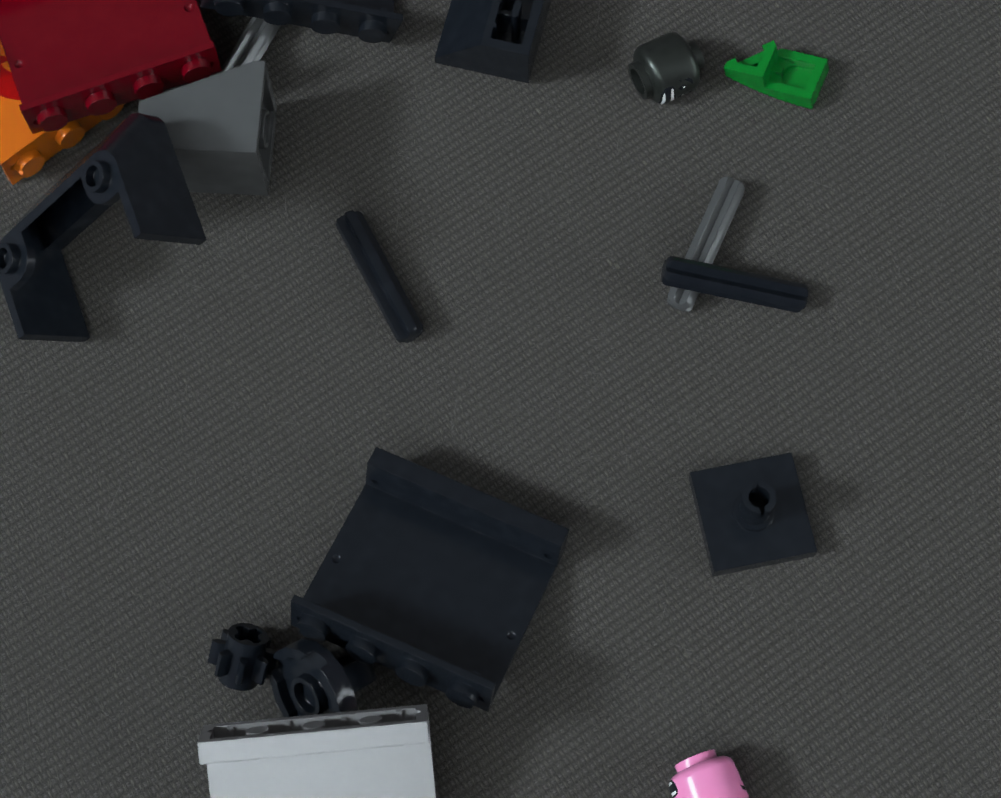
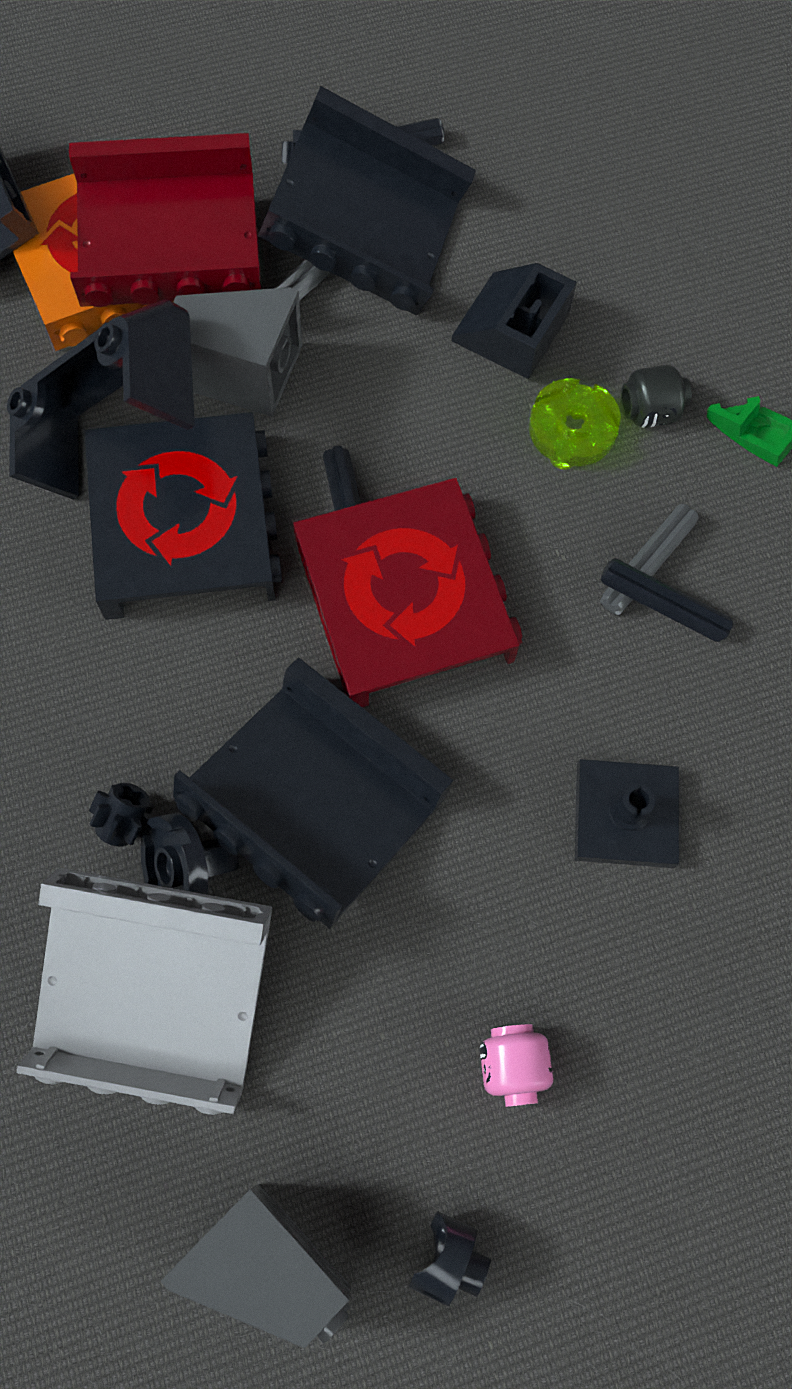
camera: 10 degrees right, 0 degrees up
(205, 326) = (179, 510): none -> black panel
(463, 344) = (405, 588): none -> dark red panel
(589, 145) = (571, 446): none -> clear neon green plate

